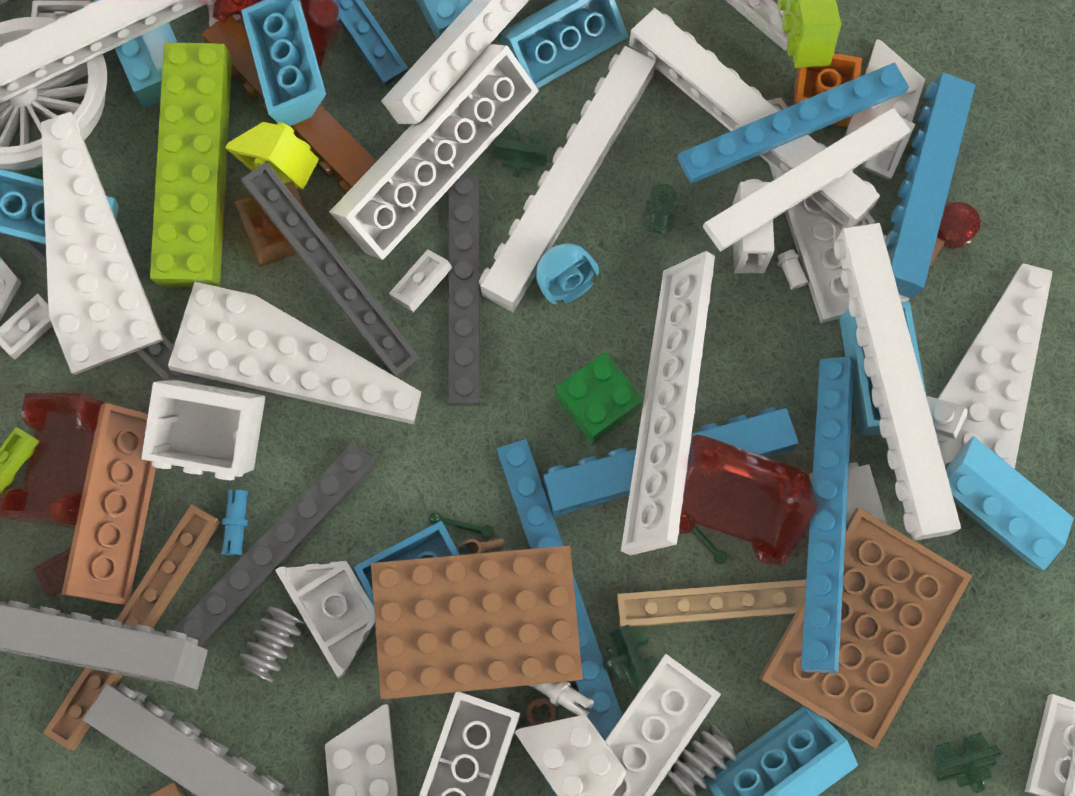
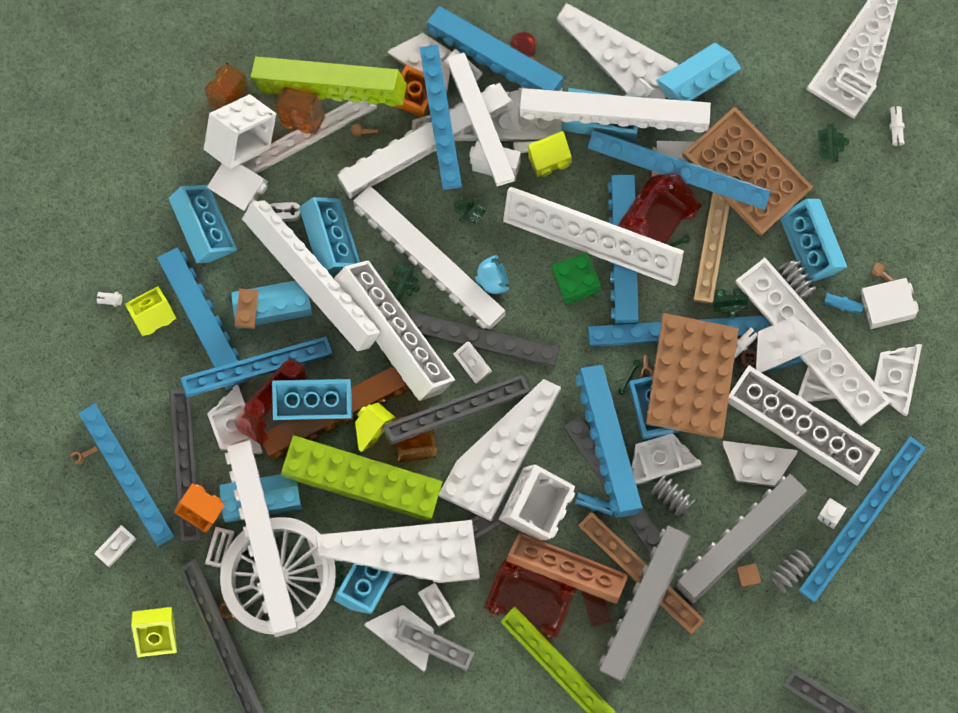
camera: 70 degrees left, 0 degrees up
(335, 516) = (608, 441): none -> dark azure brick
(738, 34) = (357, 131): none -> medium nougat hand
(790, 304) = (549, 154): none -> neon yellow slope

